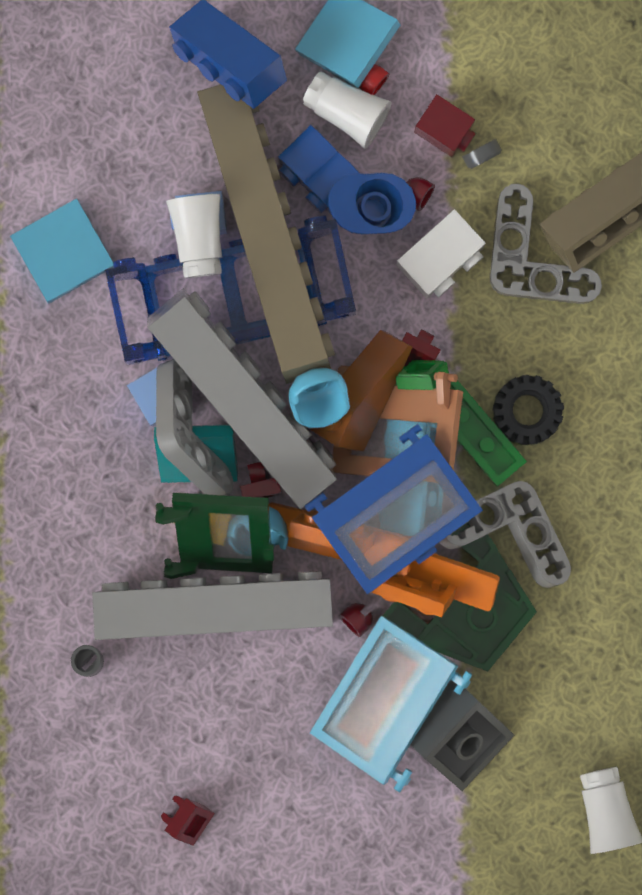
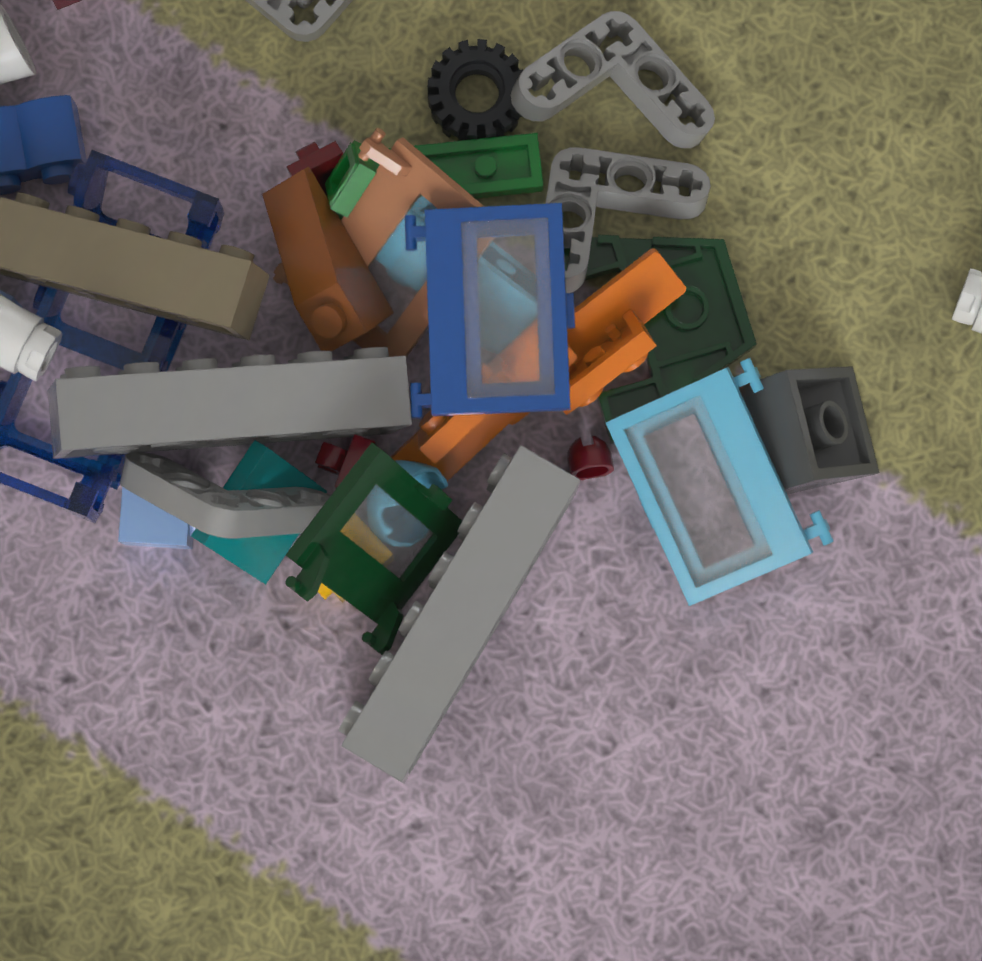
camera: 60 degrees left, 5 degrees down
(82, 656) = (411, 820): dark grey hinge -> none
(188, 821) = (699, 824): dark red tile -> none
(319, 397) = (292, 308): medium azure hair -> none
(372, 203) = (105, 102): blue piece -> none
(422, 191) = (130, 49): dark red hinge -> none
(441, 254) = (223, 70): white brick -> none
(602, 483) = (622, 64): none -> light grey beam

